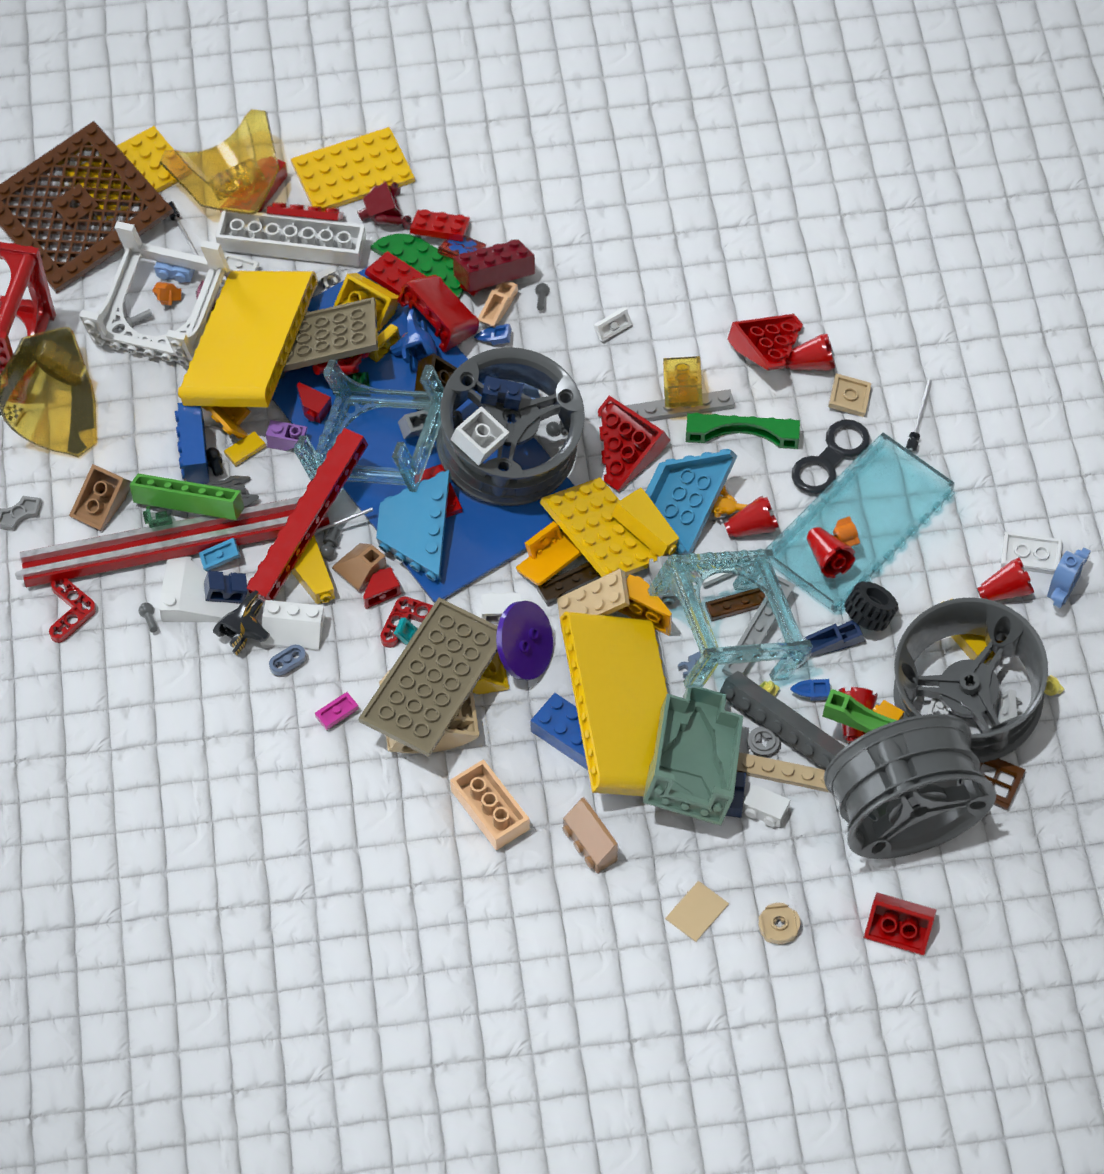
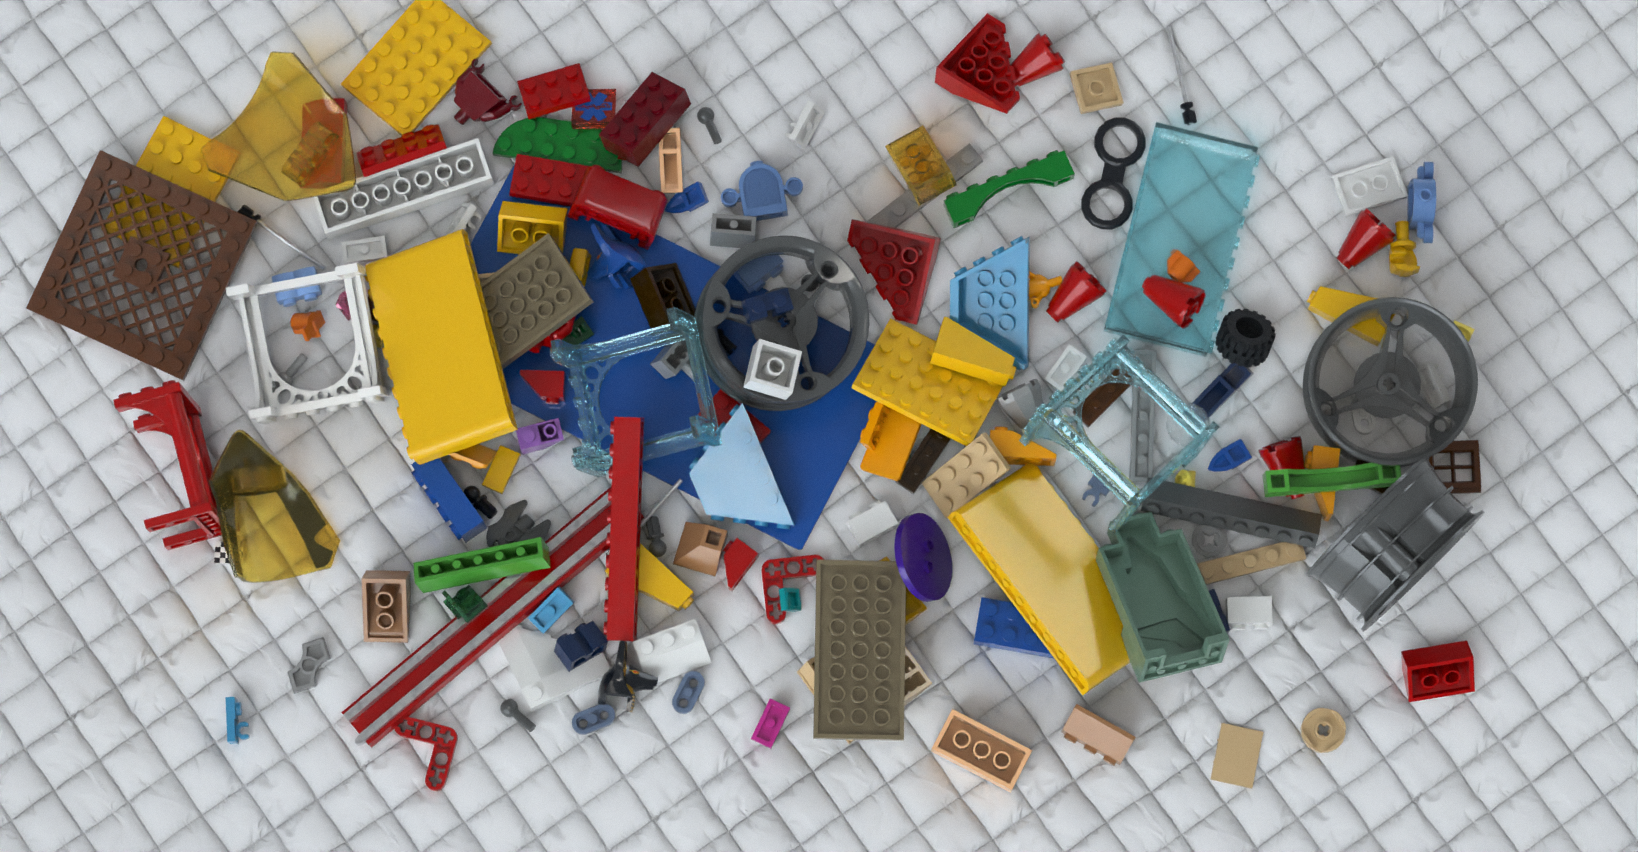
camera: 25 degrees left, 20 degrees up
(204, 644) = (593, 718): none -> sand blue plate
(556, 346) = (762, 192): none -> medium blue piece
(1034, 605) = (1401, 255): none -> yellow piece

